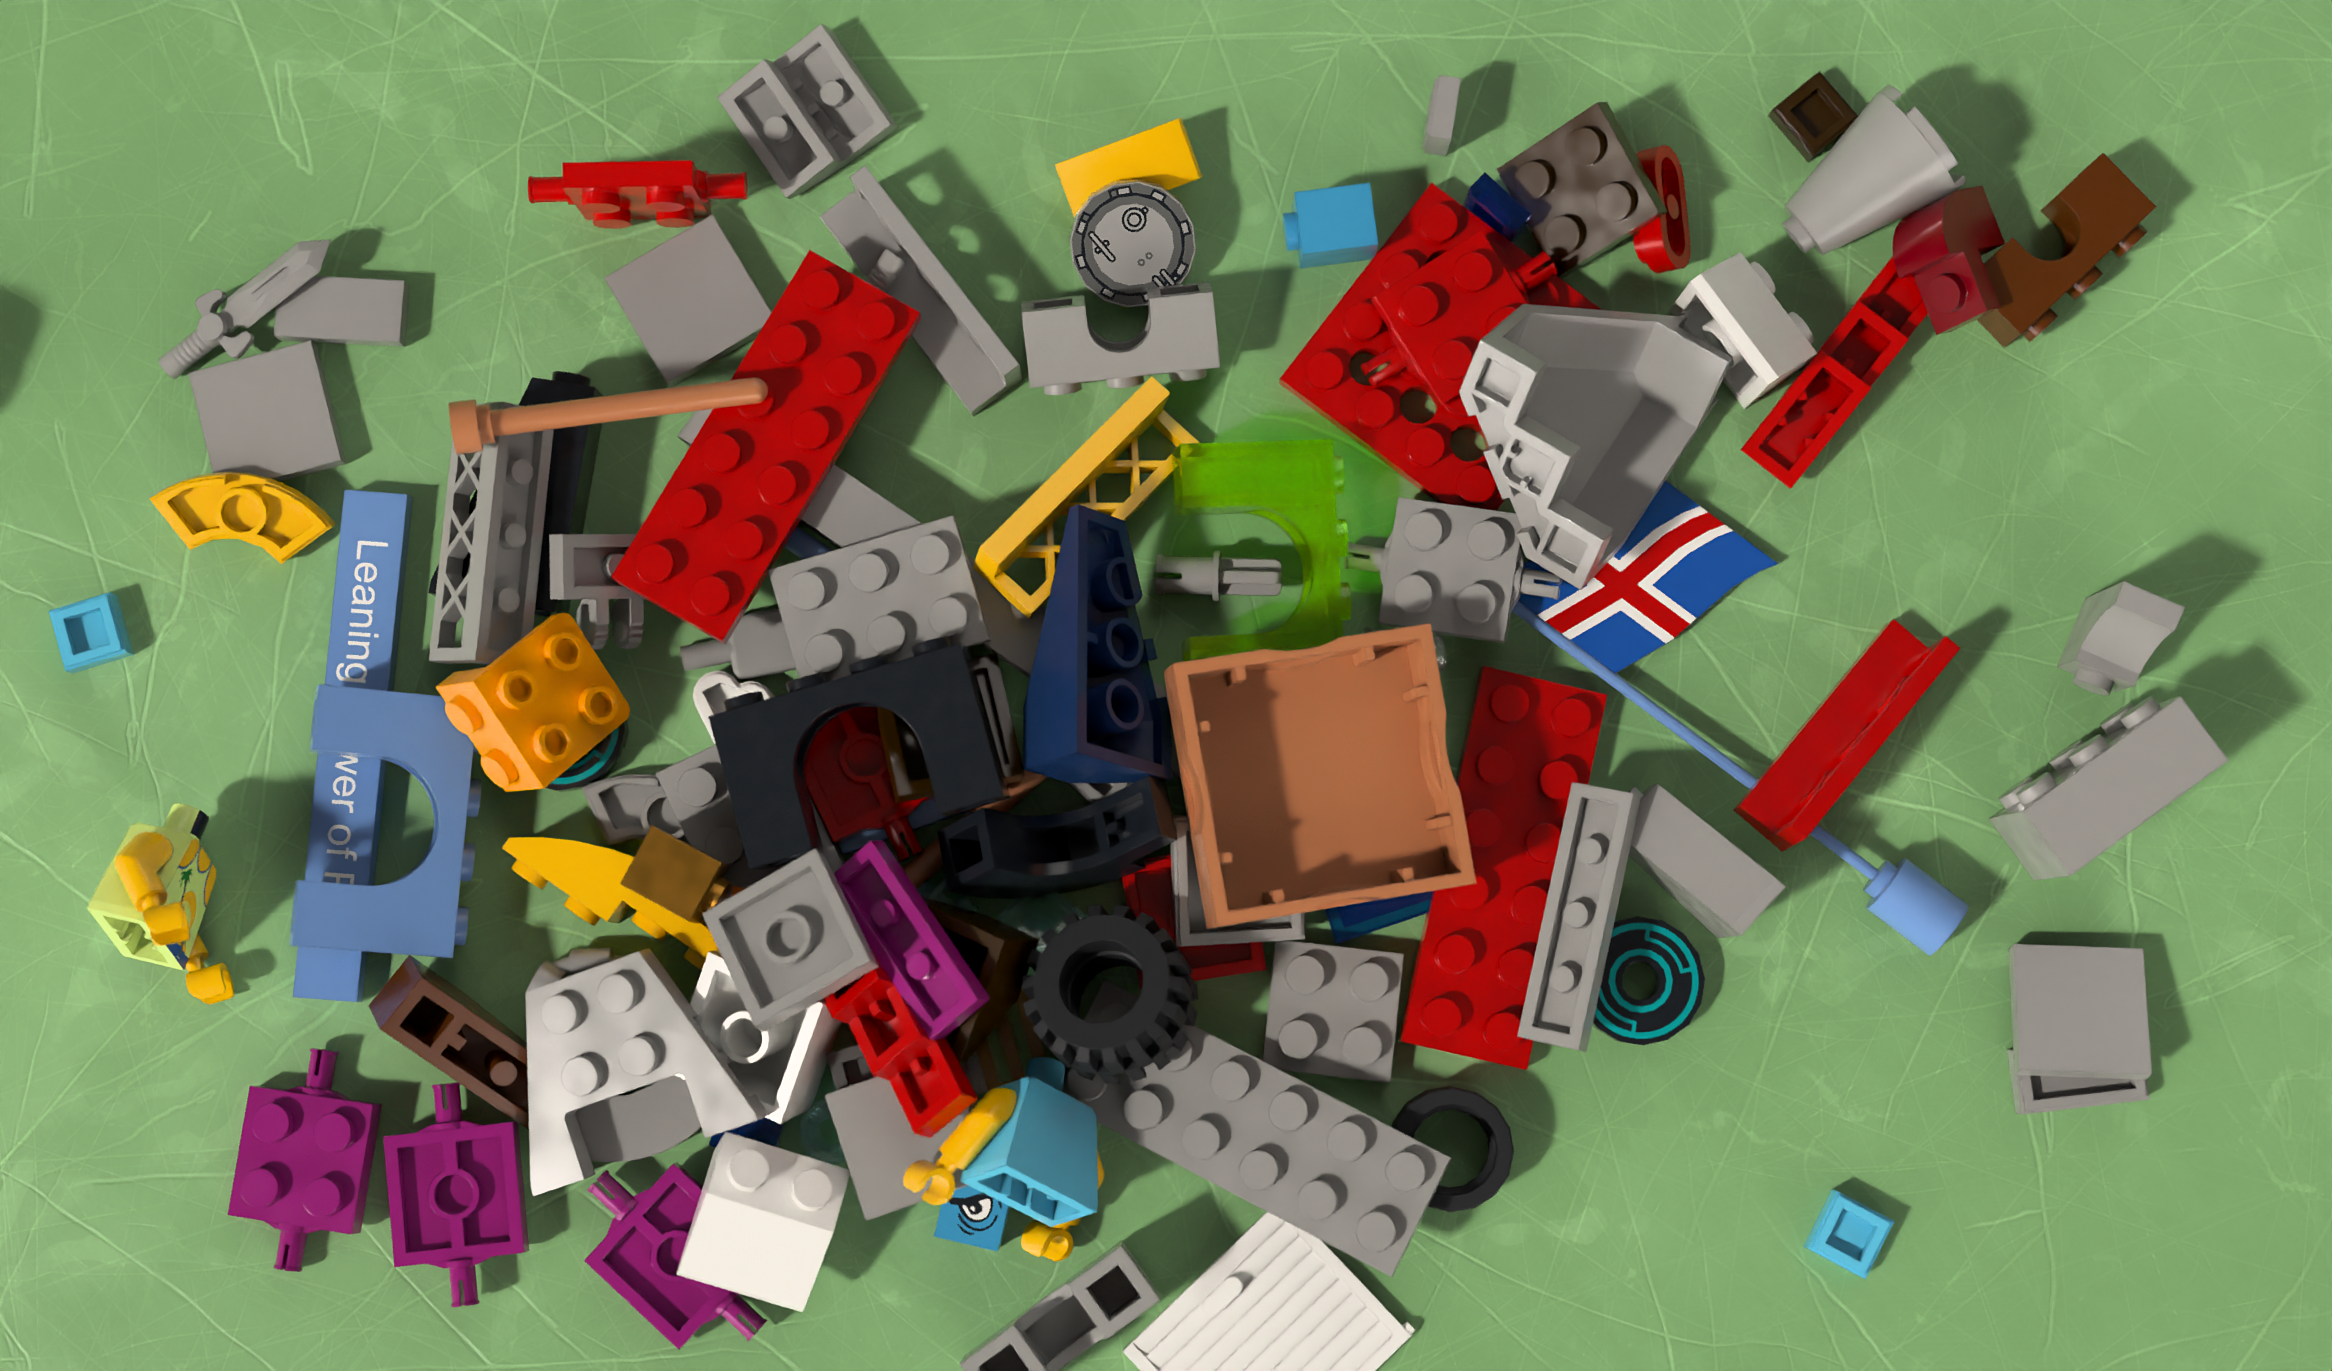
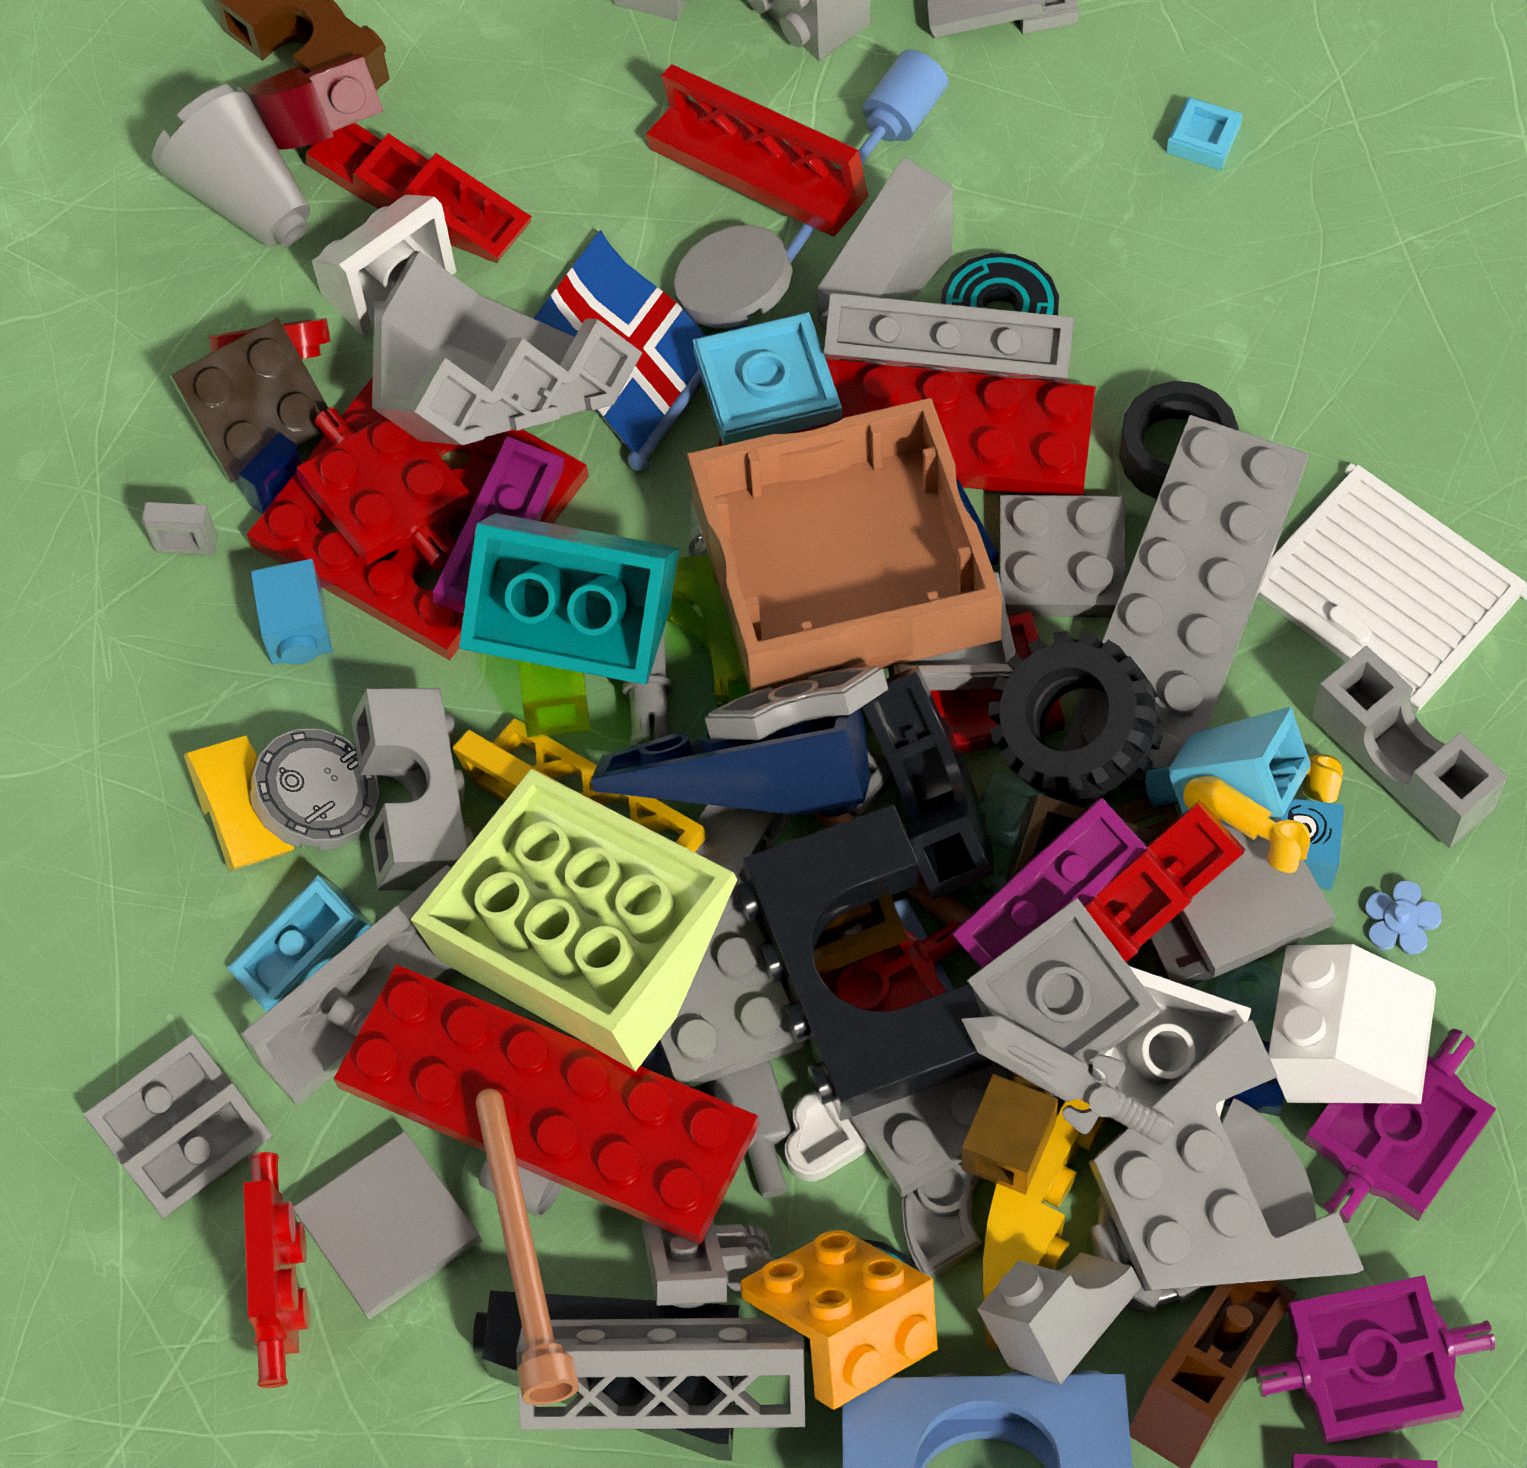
camera: 90 degrees left, 20 degrees down
(513, 905) = (1054, 1317): none -> light grey arch
(688, 963) = (1066, 1077): none -> light grey sword
(896, 1295) = (1402, 918): none -> light blue plant
(931, 482) = (578, 917): none -> yellowish green slope
(981, 229) = (299, 942): none -> medium azure slope
(1141, 741) = (800, 701): none -> light grey tile
(1287, 494) = (567, 597): none -> teal slope
(1392, 432) = (515, 487): none -> magenta plate
(1452, 570) = (629, 473): light grey plate -> none
(1553, 721) = (767, 379): none -> medium azure tile
(1696, 698) = (733, 276): none -> light grey tile
(1813, 116) = (177, 234): dark brown tile -> none

